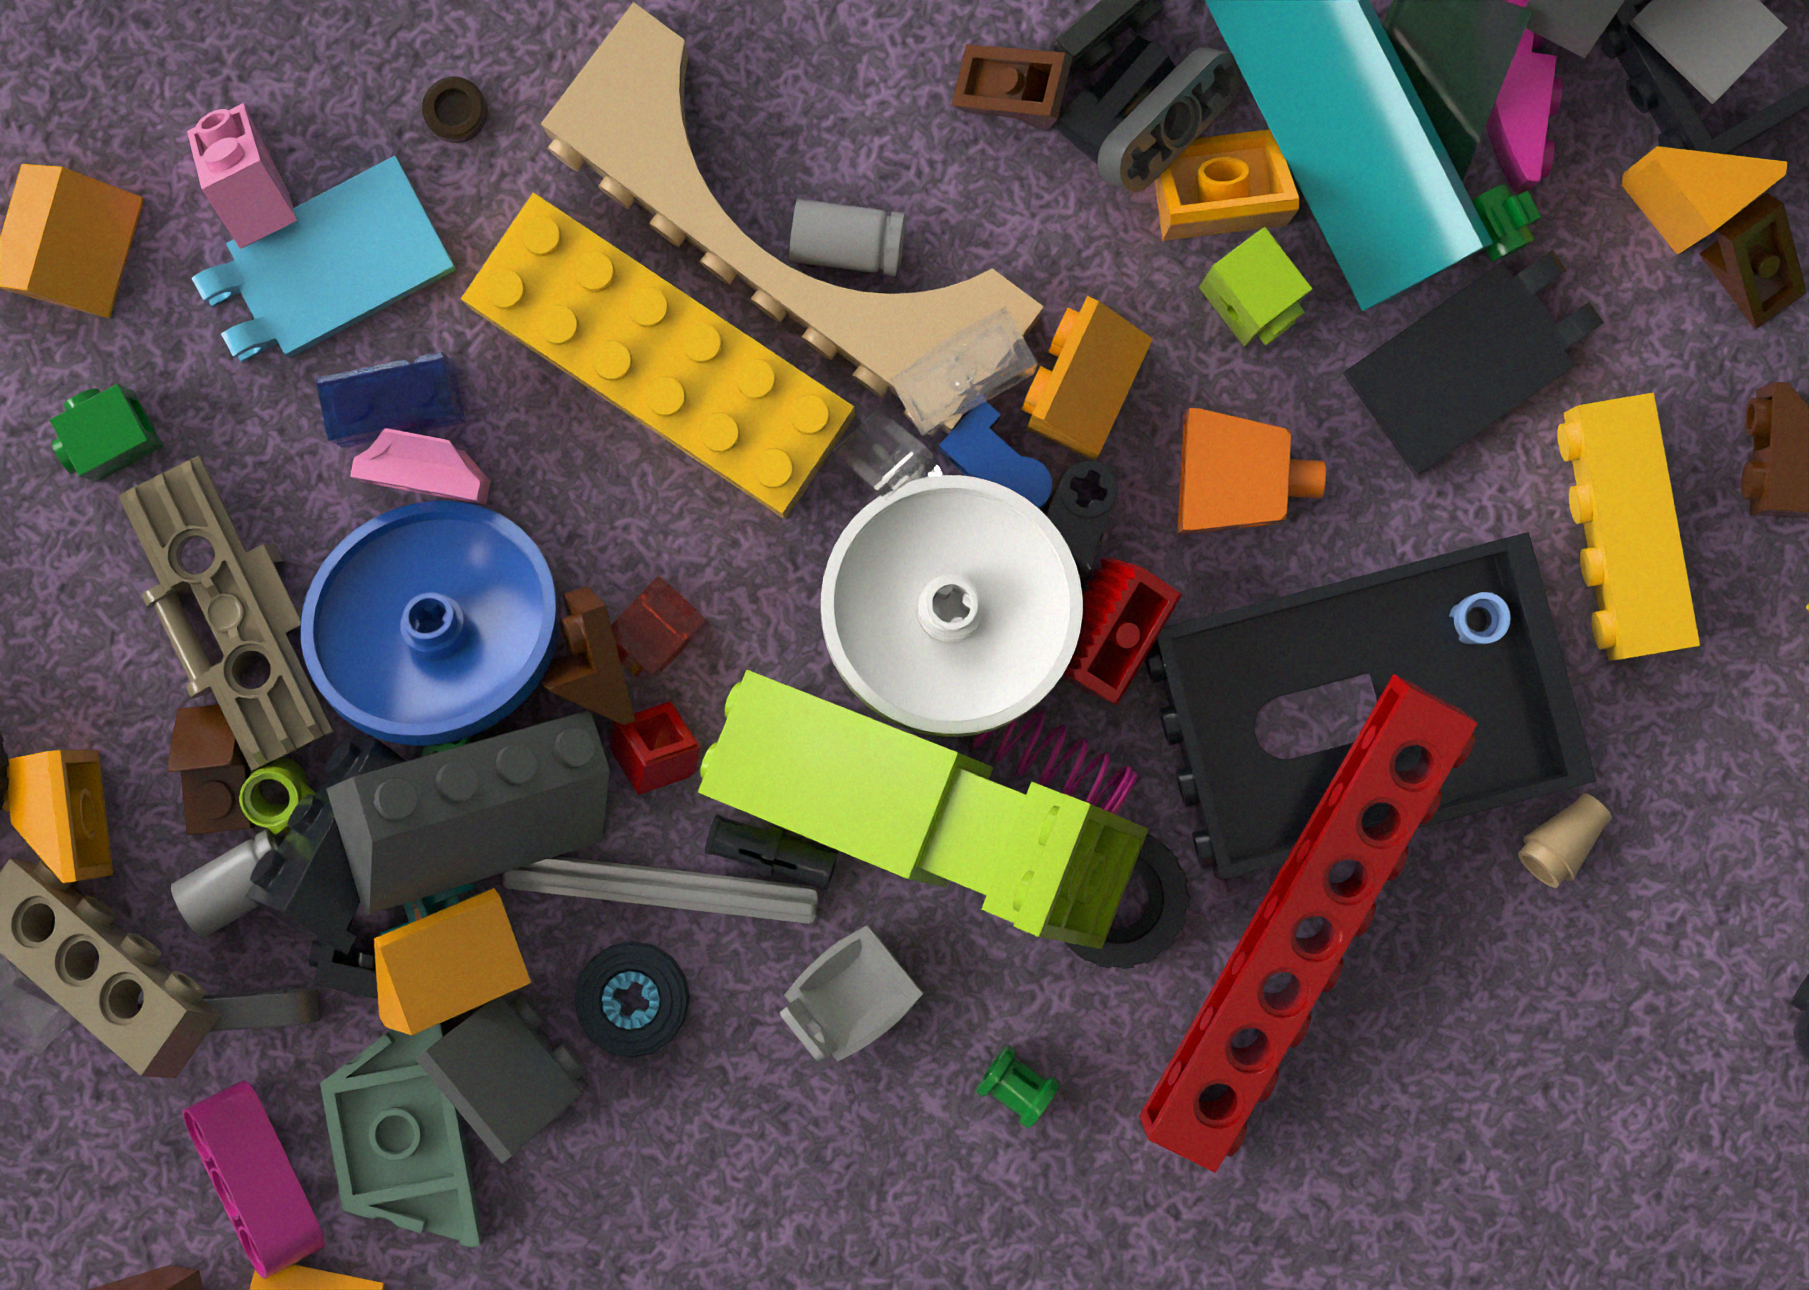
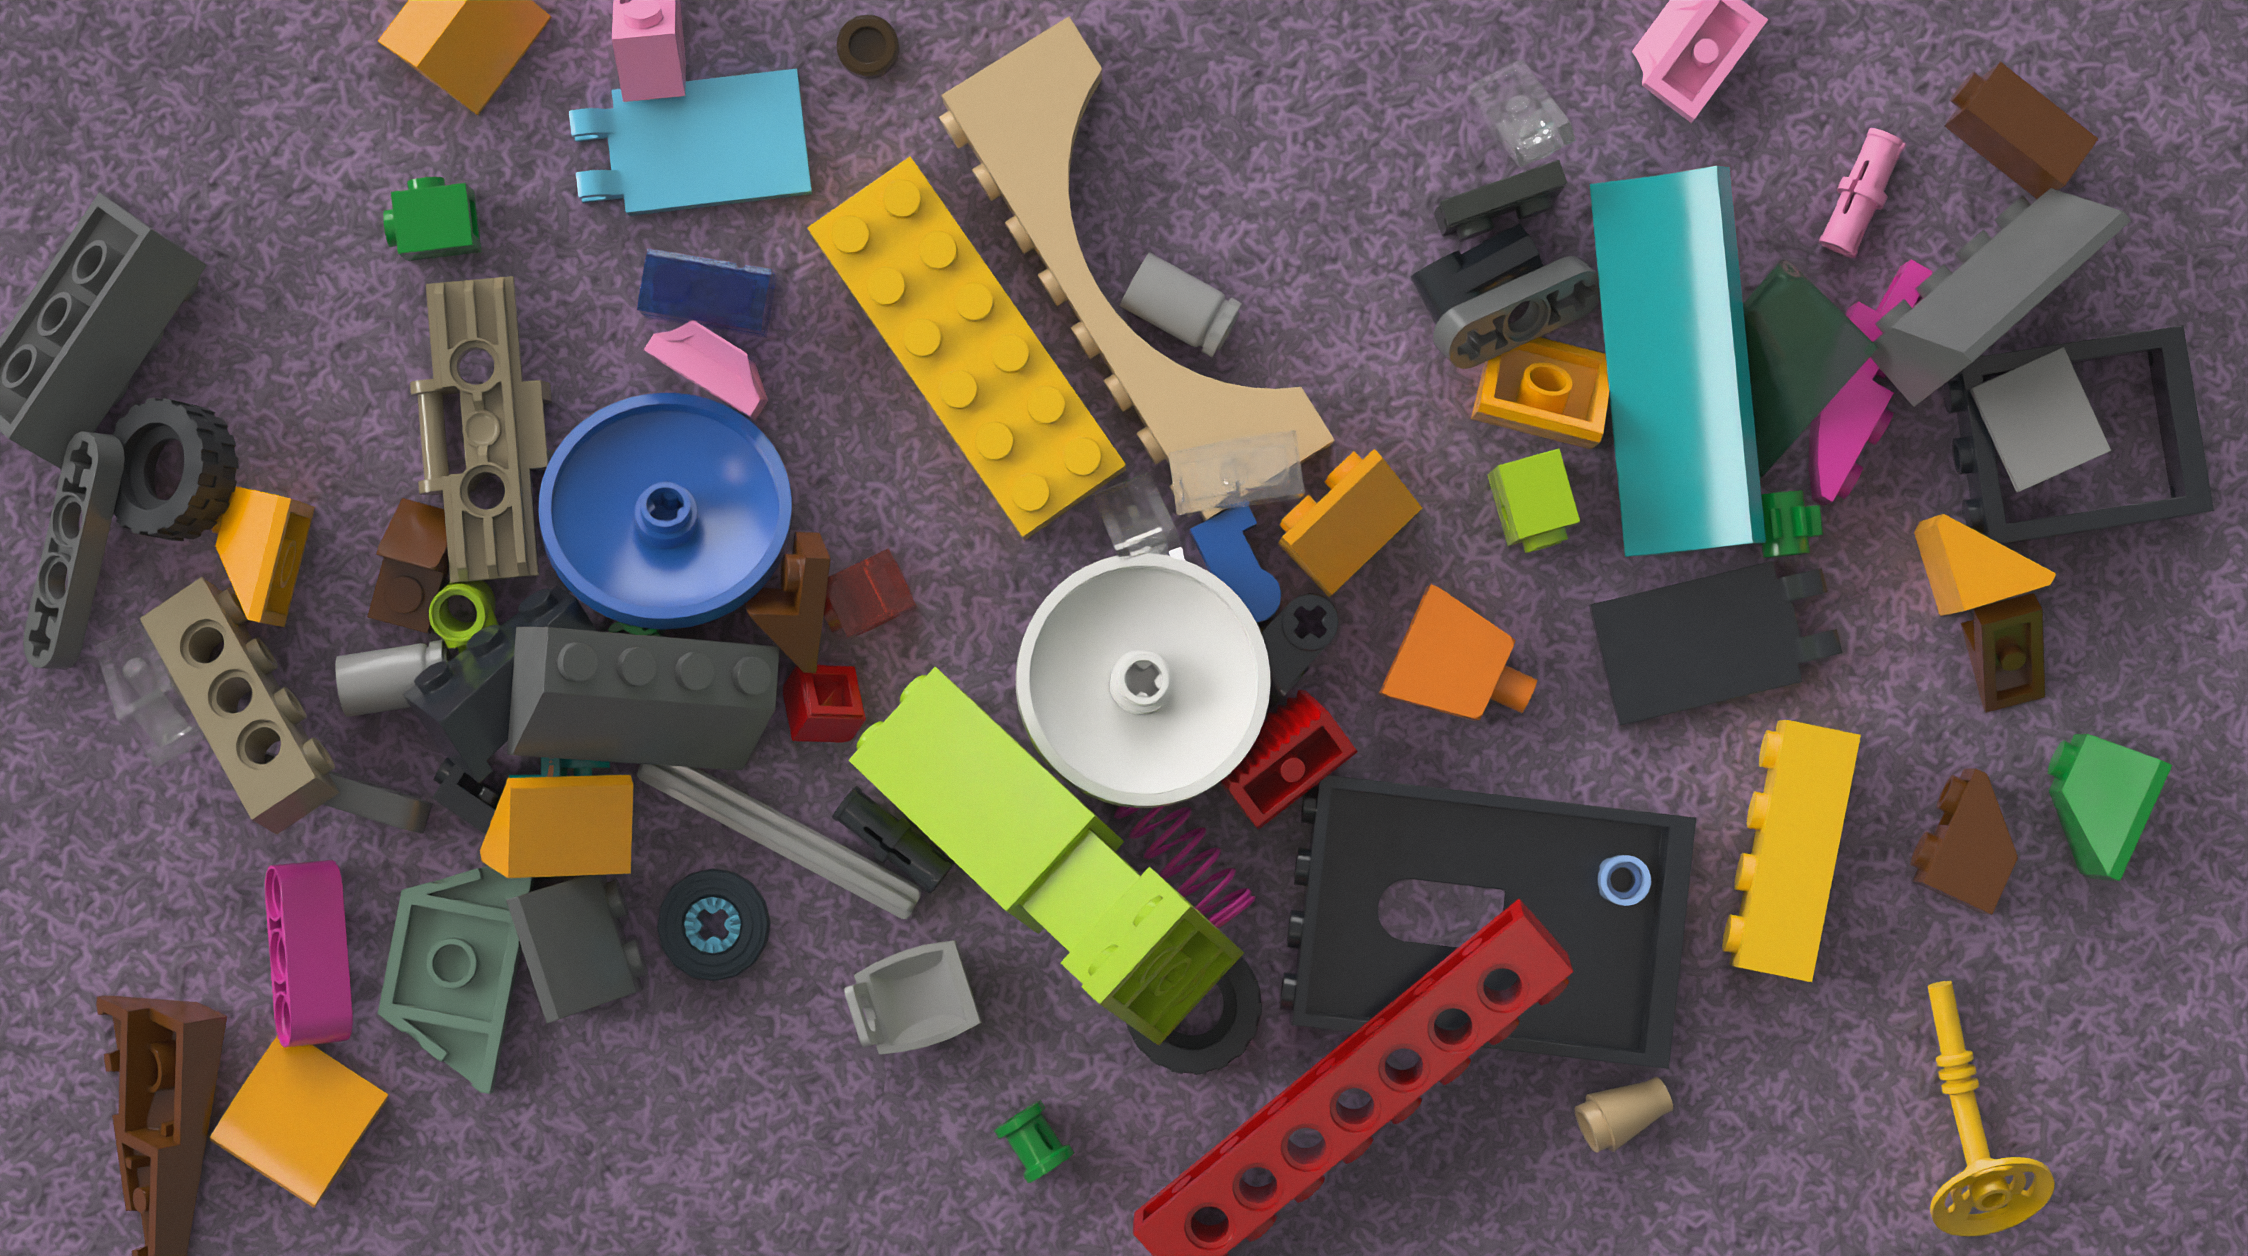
camera: 20 degrees right, 0 degrees up
(1012, 83) = (1386, 223): reddish brown slope -> none

